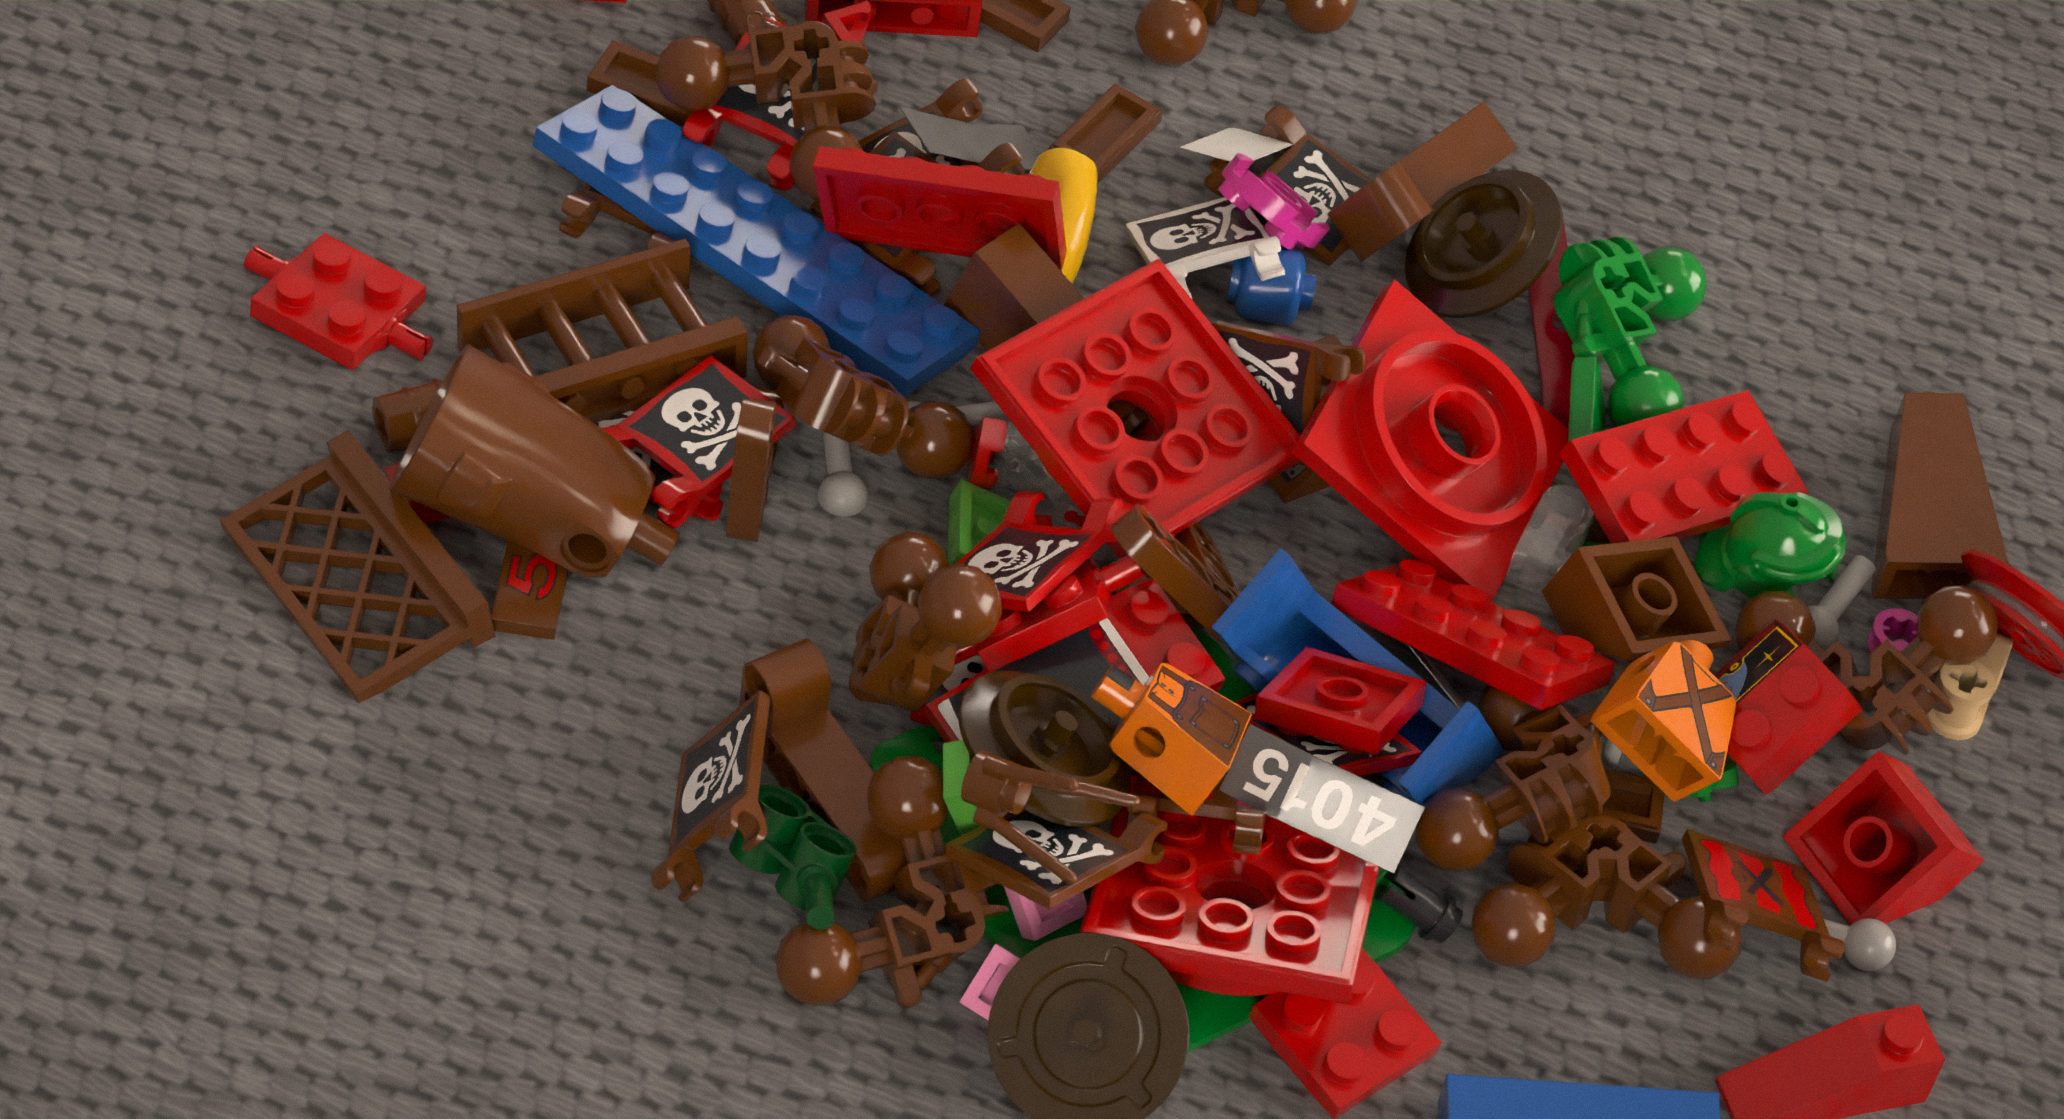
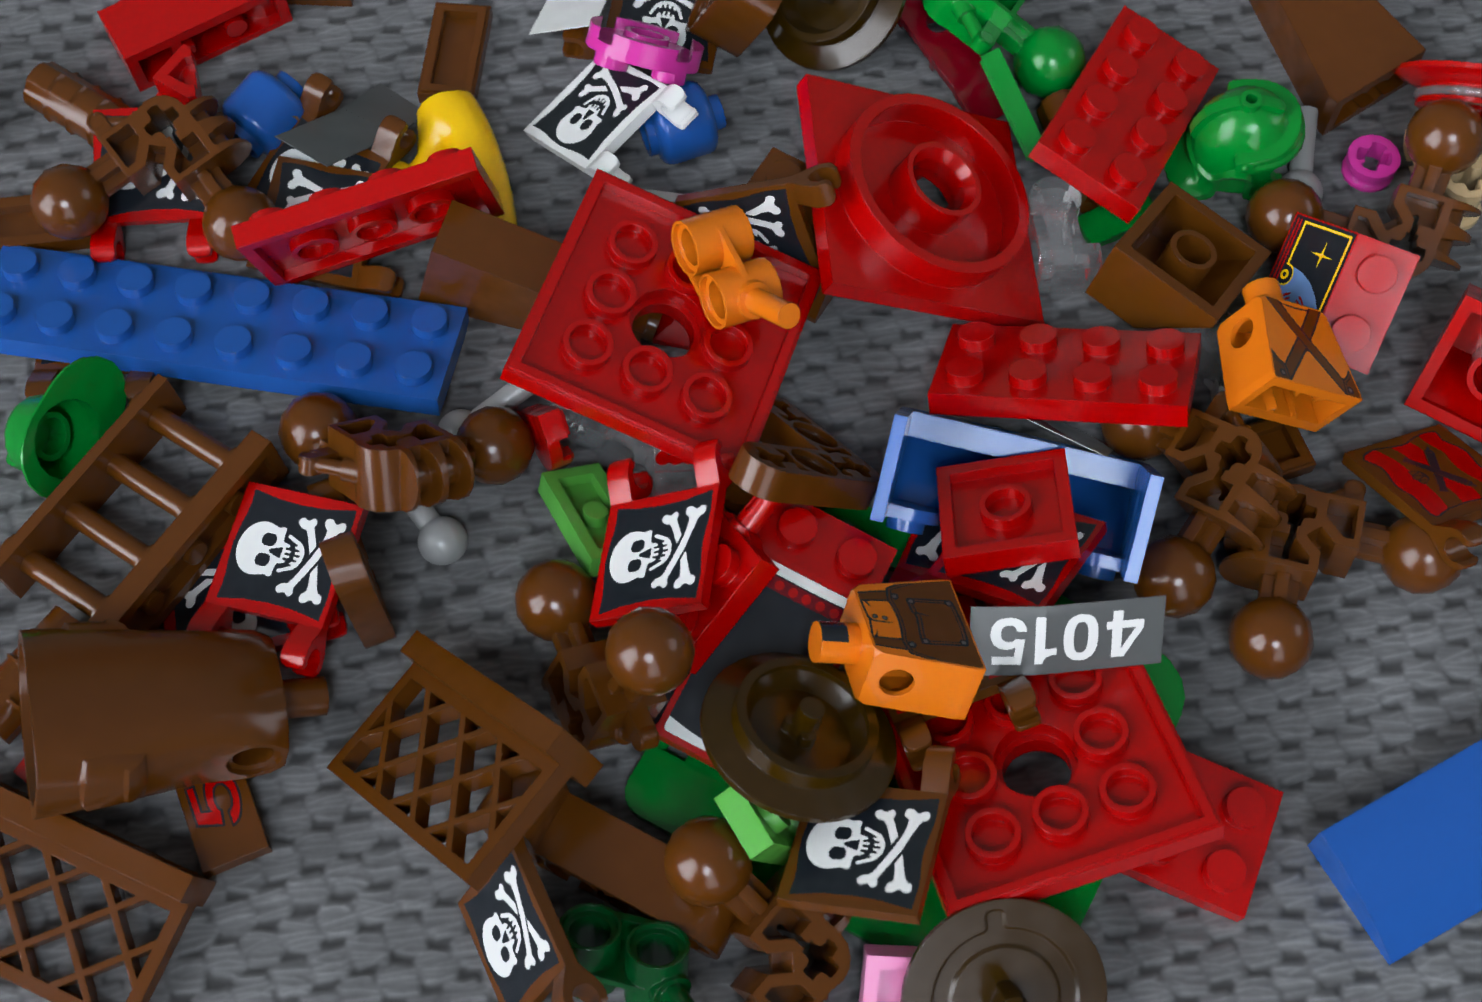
camera: 20 degrees left, 15 degrees up
(586, 232) = (58, 428): none -> green piece
(757, 624) = (501, 720): none -> reddish brown fence
(905, 83) = (264, 108): none -> blue head
(1005, 786) = (804, 825): reddish brown plant -> none
(1217, 386) = (730, 291): none -> orange beam
(1421, 905) = (1192, 663): black pin -> none

